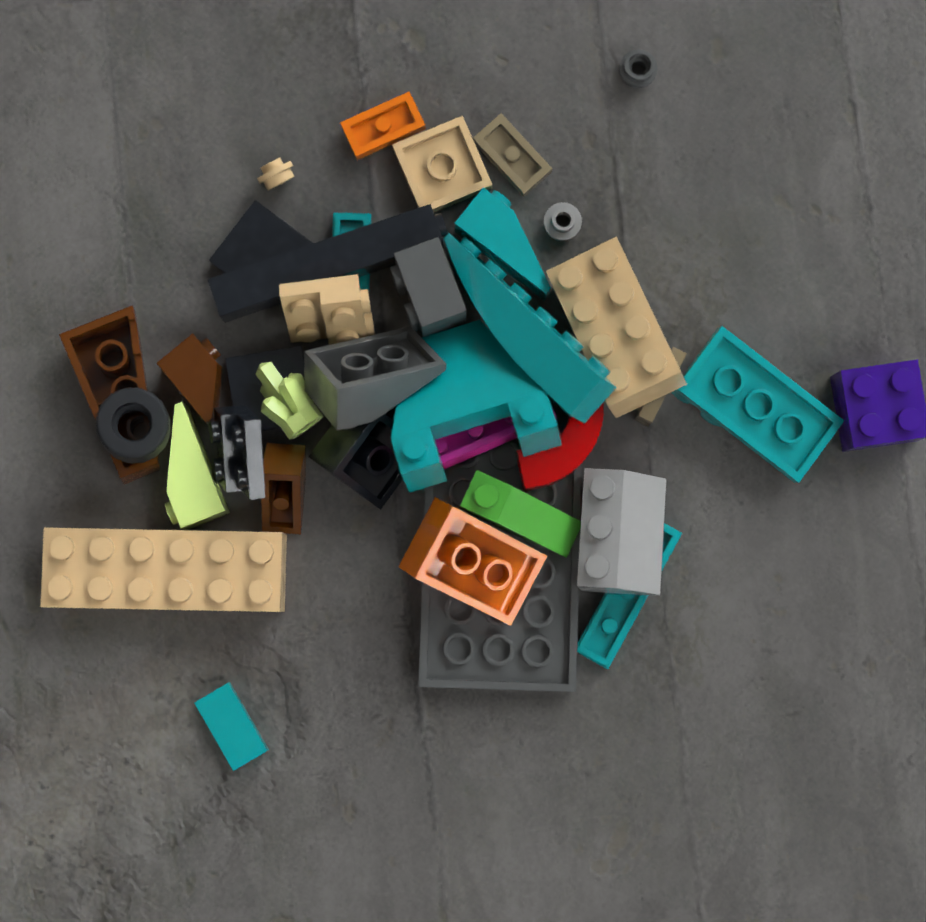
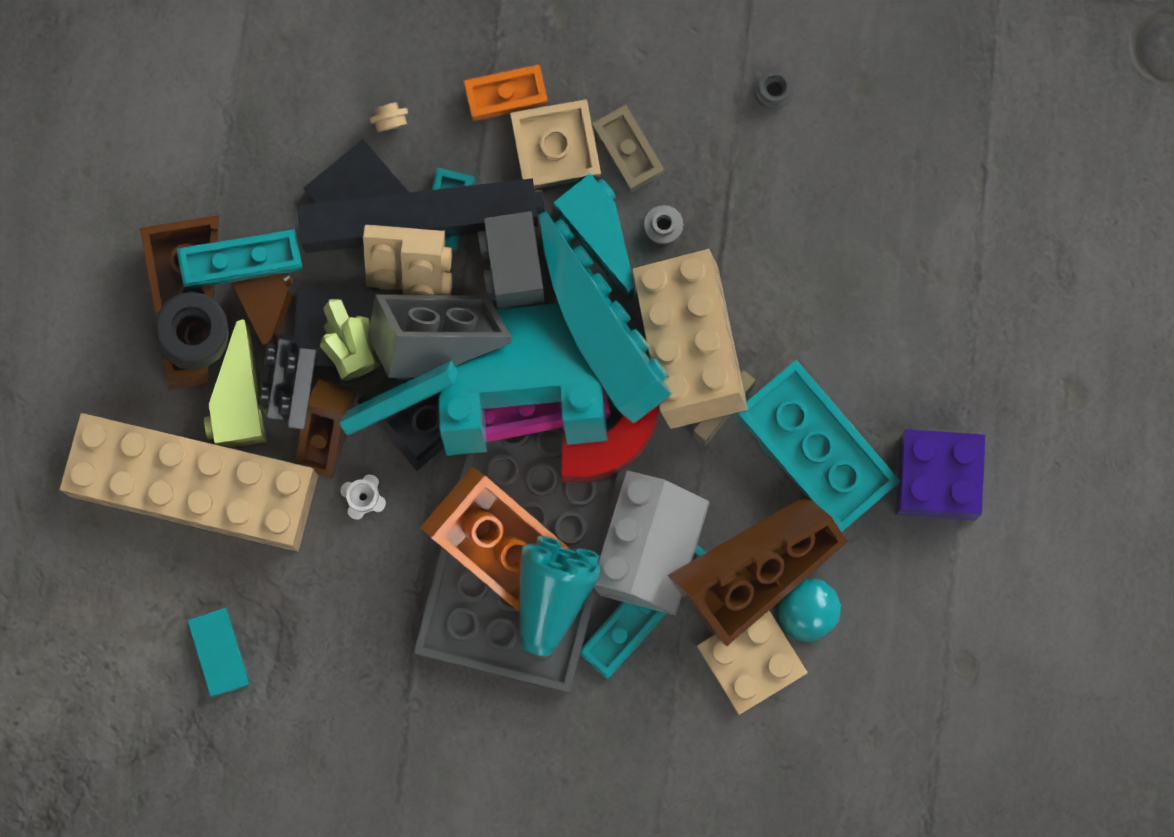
camera: 20 degrees right, 5 degrees down
(163, 344) = (239, 259): none -> teal tile
(335, 535) = (352, 492): none -> white plate
(351, 448) = (399, 398): none -> teal tile
(520, 514) = (552, 501): bright green slope -> none
(541, 601) = (552, 591): none -> teal cone
(729, 533) = (757, 568): none -> reddish brown wedge
(739, 620) = (753, 664): none -> tan plate
(782, 561) = (809, 610): none -> teal hair

